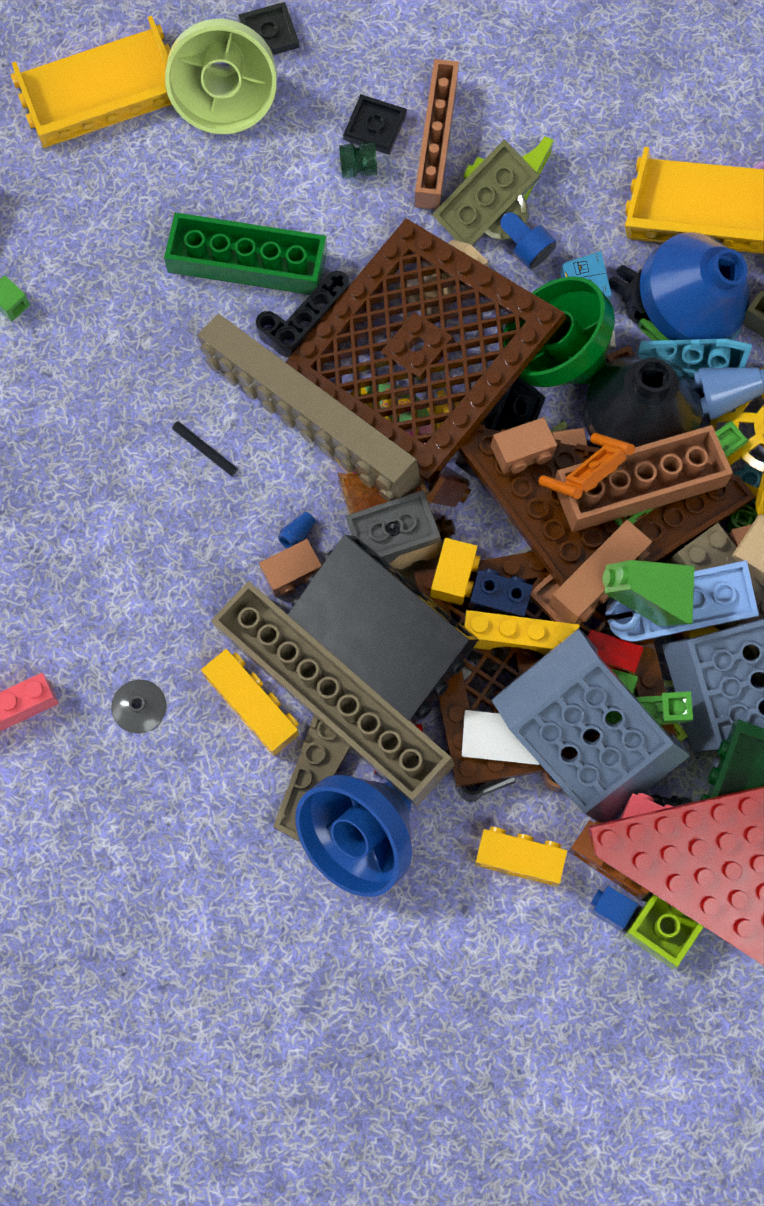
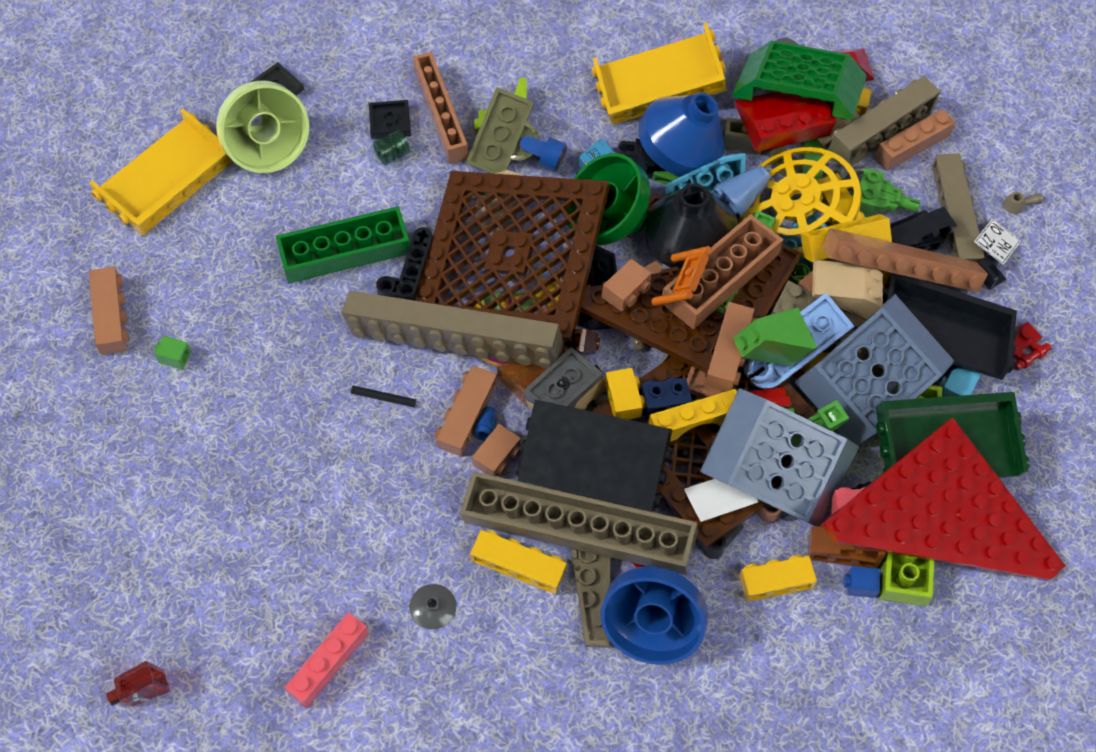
camera: 30 degrees left, 10 degrees down
(282, 506) = (466, 410): none -> nougat brick

